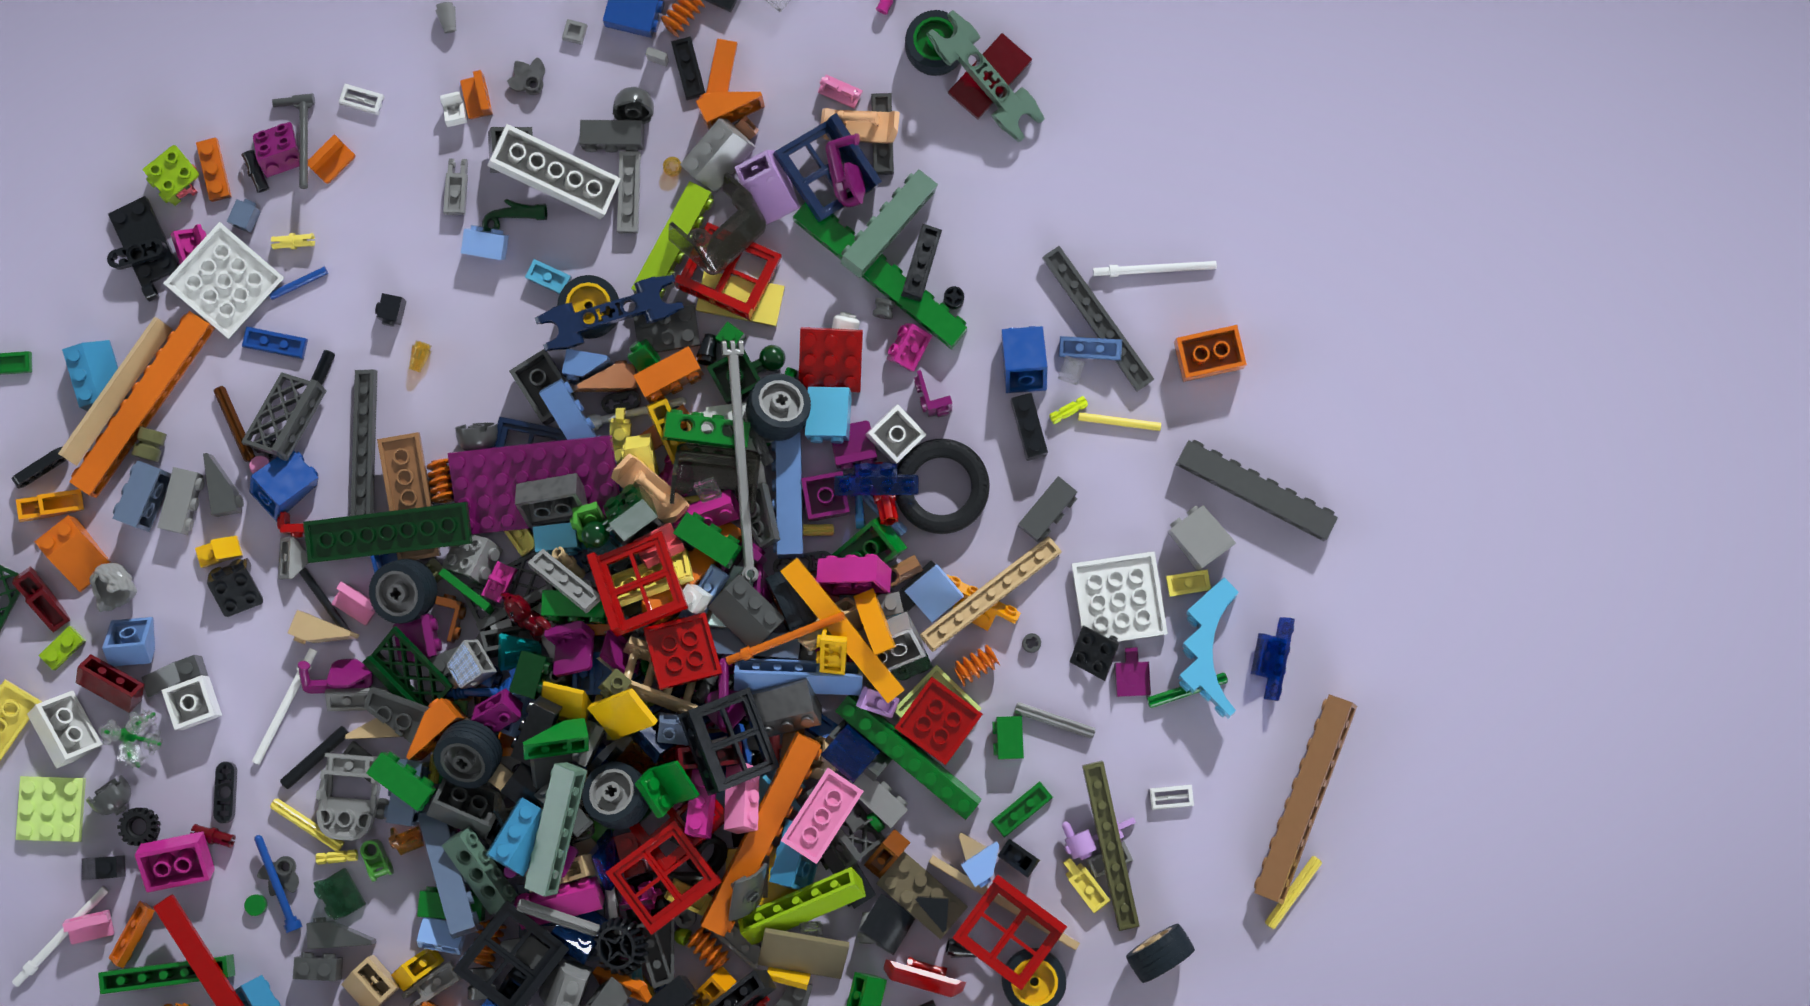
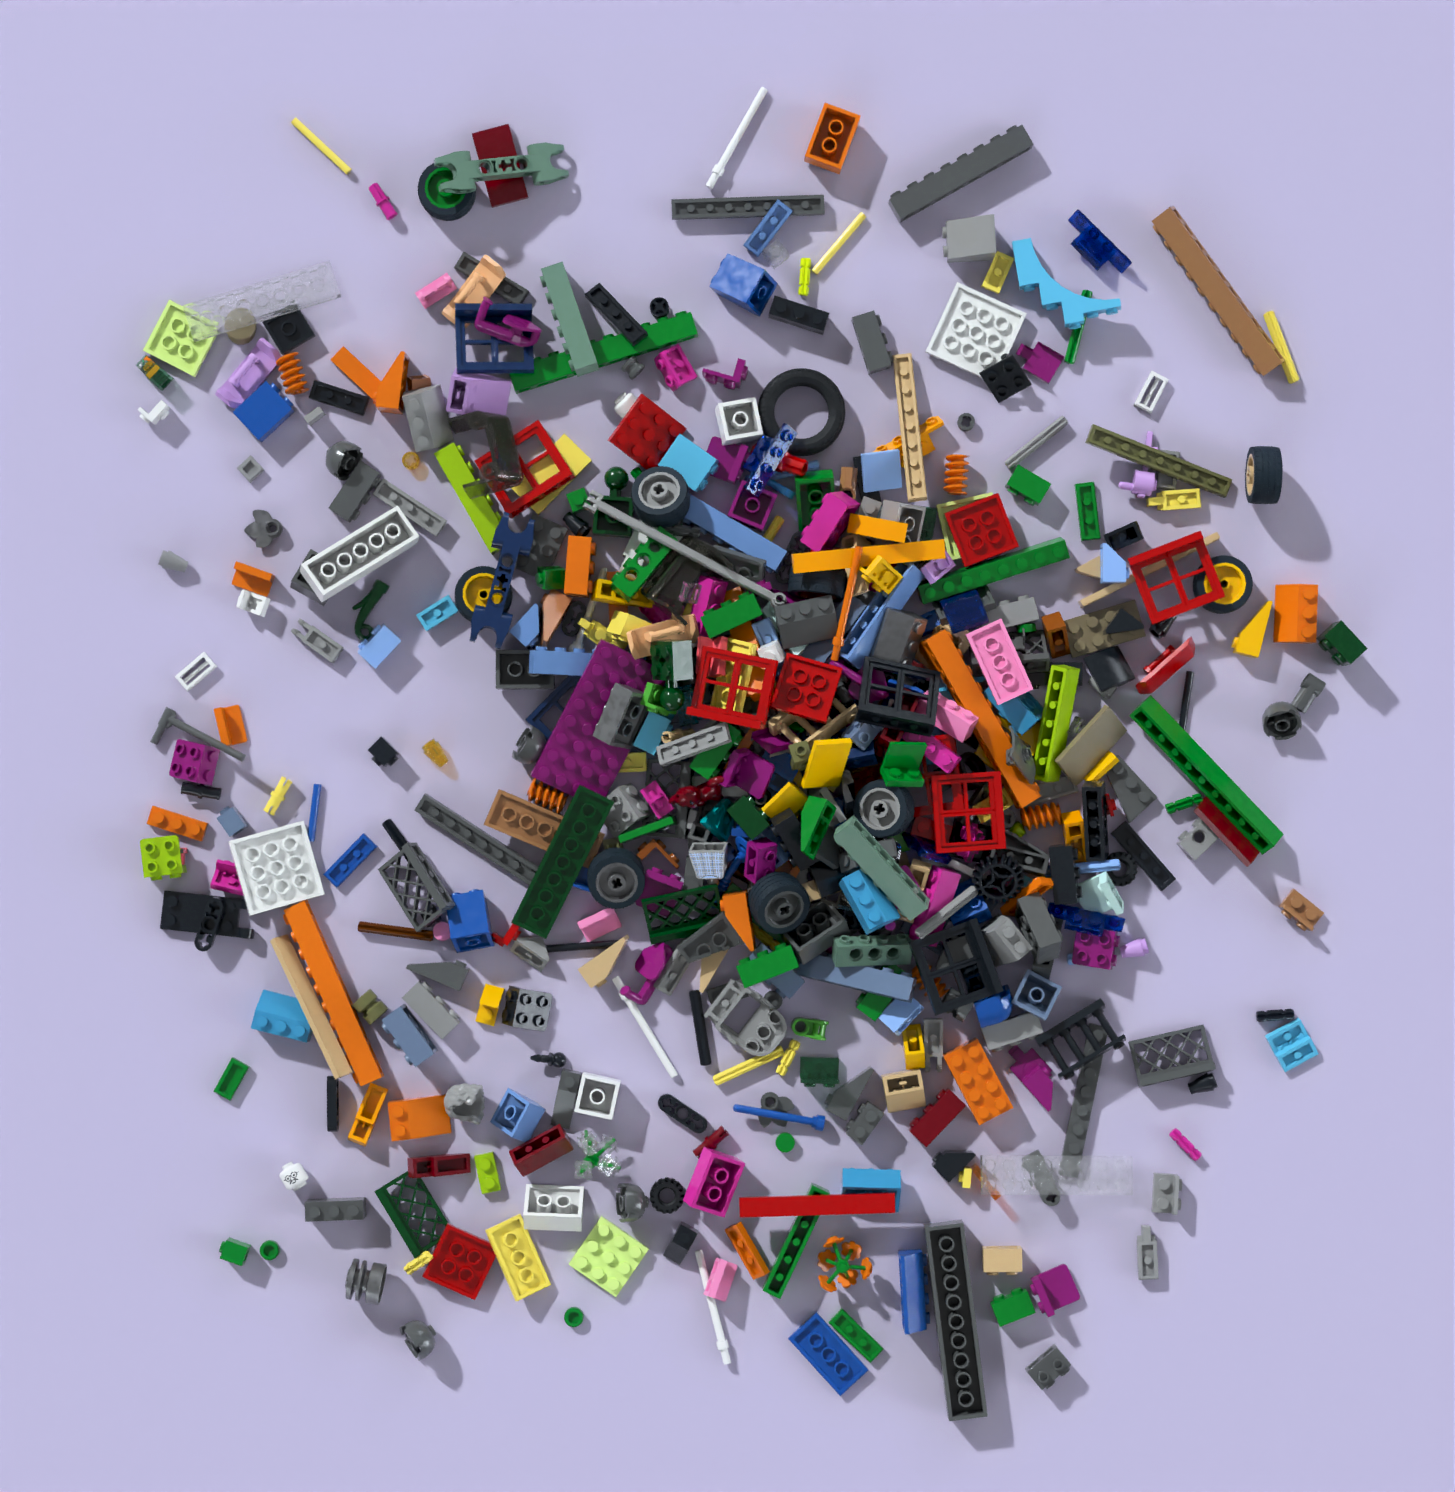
camera: 60 degrees left, 5 degrees up
(205, 645) = (557, 1059): none -> black bar
(406, 841) = (810, 995): clear orange bracket -> none

